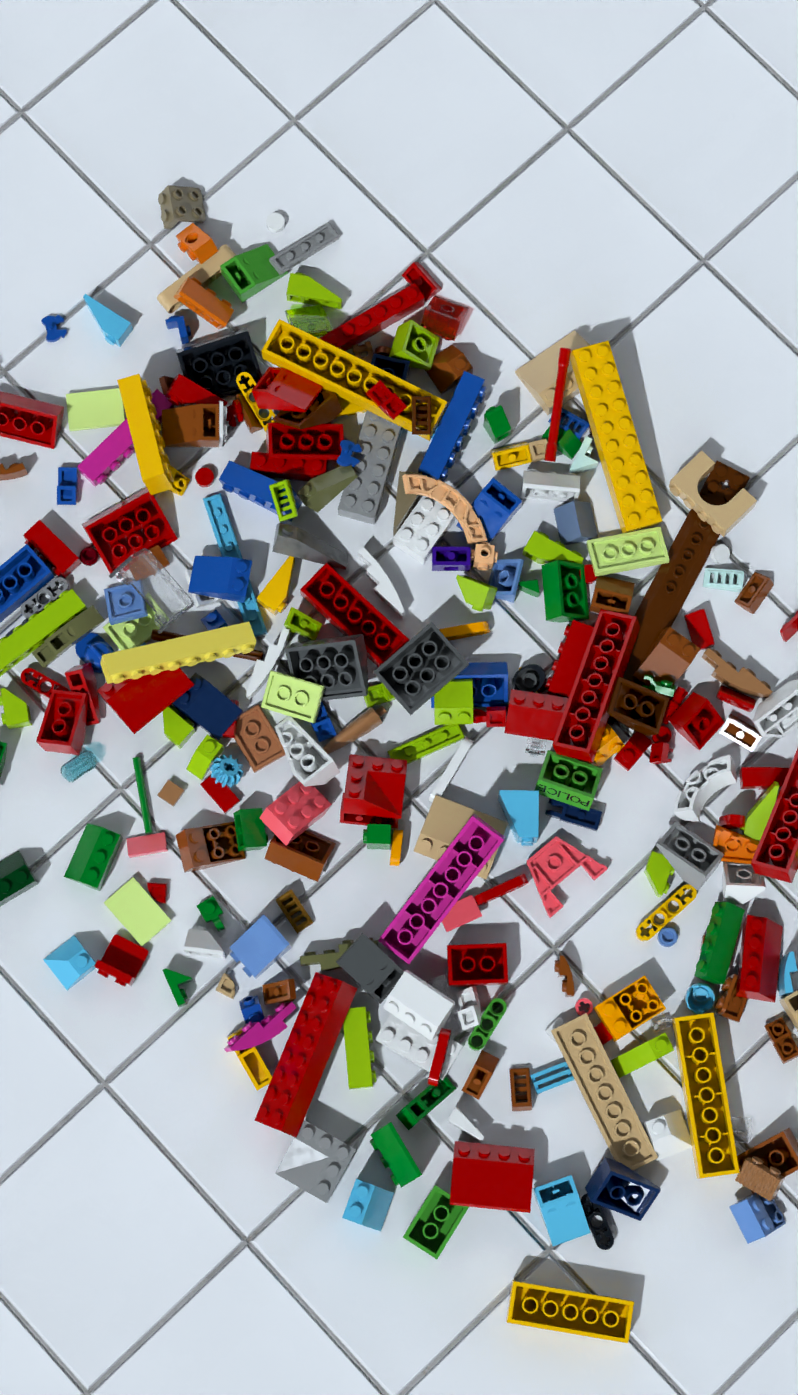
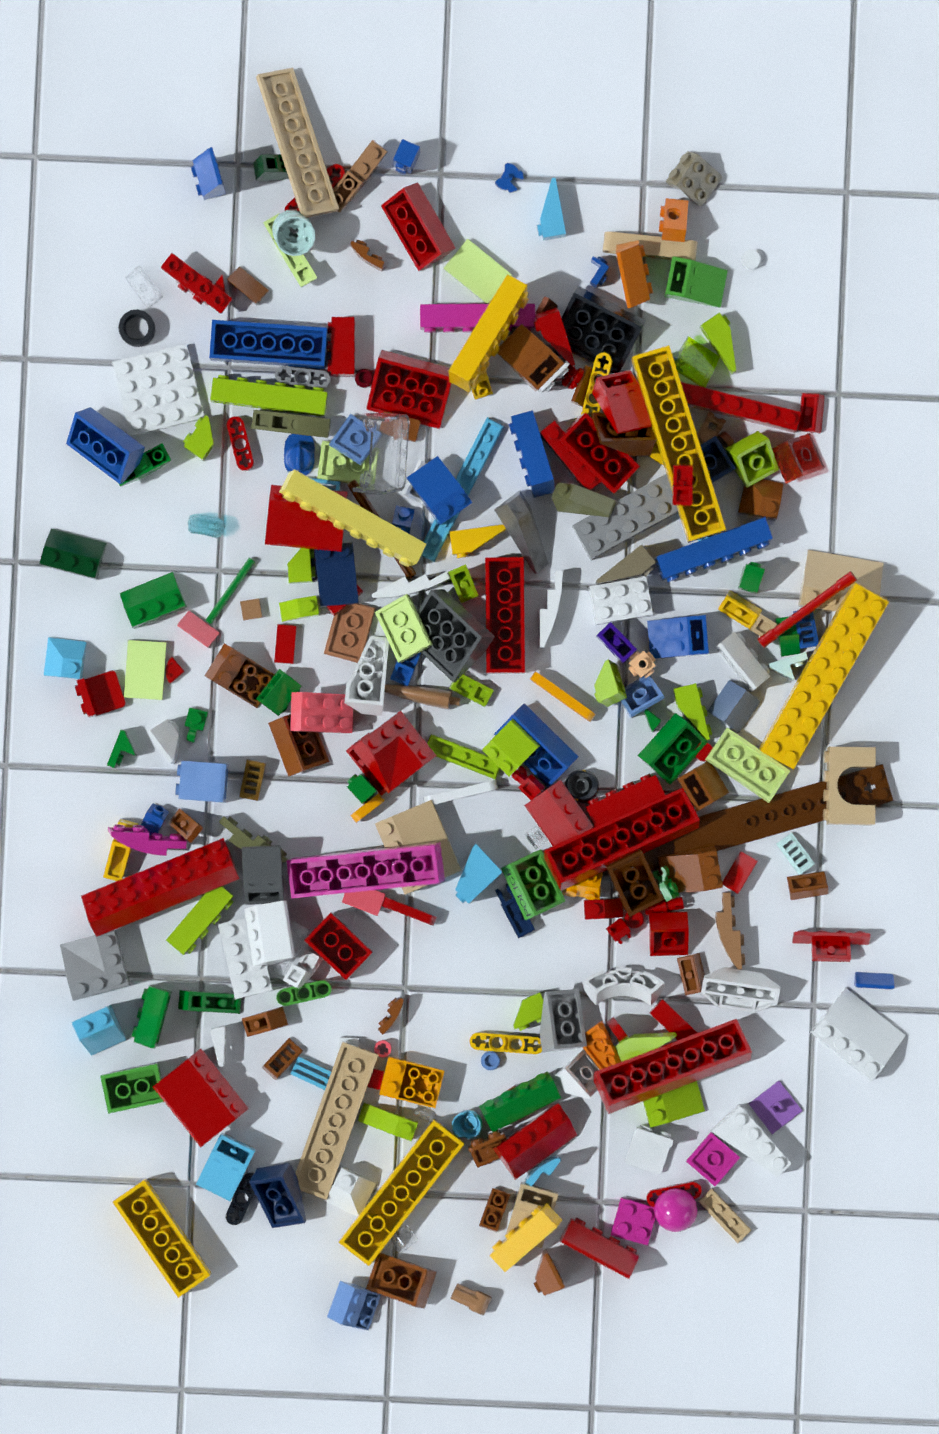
camera: 45 degrees right, 10 degrees up
(64, 722) = (226, 484): red slope -> none
(67, 485) = (400, 309): blue slope -> none
(83, 680) = (261, 477): red slope -> none
(204, 477) = (504, 402): red tile -> none
(226, 770) = (301, 641): medium azure gear -> none
(226, 986) = (154, 784): tan tile -> none
(278, 486) = (531, 479): lime slope -> none
(304, 248) = (750, 302): light grey tile -> none
(345, 458) = (624, 488): blue piece -> none
(421, 399) = (707, 509): reddish brown slope -> none
(421, 668) = (510, 702): dark grey slope -> none
(439, 1057) = (247, 982): red beam -> none
(451, 499) = (658, 602): light nougat tile -> none
(553, 865) = (463, 931): coral wing -> none
(720, 553) = (812, 833): white tile -> none
(735, 698) = (714, 946): red slope -> none
(760, 1178) = (379, 1284): medium nougat brick -> none

